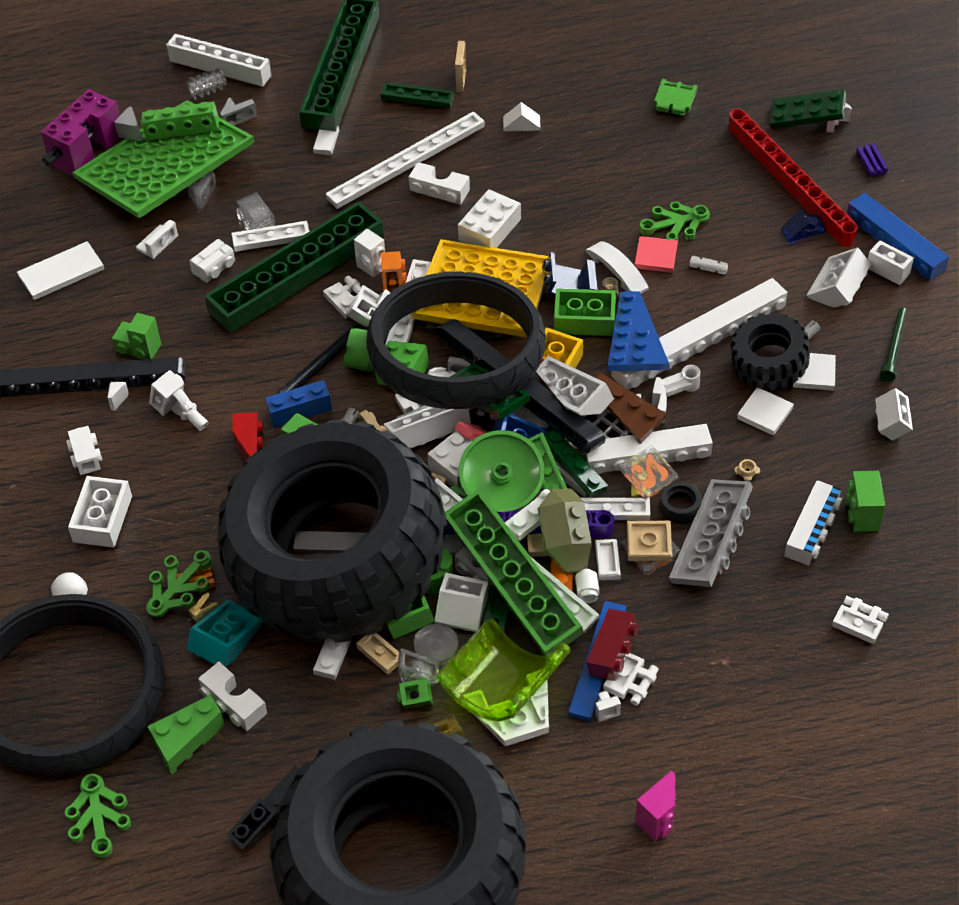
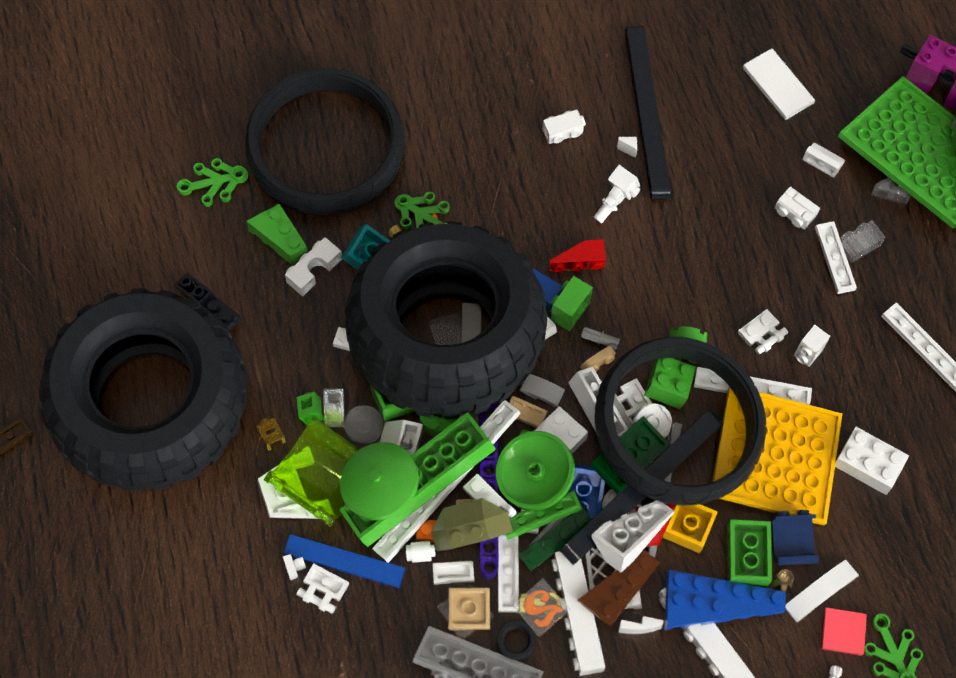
camera: 85 degrees right, 15 degrees up
(68, 584) = (423, 135): white hair -> none
(100, 511) = (495, 146): white brick -> none
(138, 338) = (691, 154): bright green brick -> none
(290, 268) = (792, 280): dark green brick -> none
(305, 400) = (622, 295): blue brick -> none
(319, 362) = (679, 312): black axle -> none
(365, 305) = (742, 348): white brick -> none
(379, 652) = (351, 381): tan plate -> none
(392, 269) = (786, 366): orange brick -> none
(450, 189) = (917, 425): white arch -> none
(470, 431) = (588, 445): coral tile -> none
(516, 605) = (379, 481): none -> bright green dish
(612, 644) = (349, 569): dark red brick -> none
(657, 808) = (184, 605): dark pink slope -> none
(686, 380) = (664, 646): white piece -> none

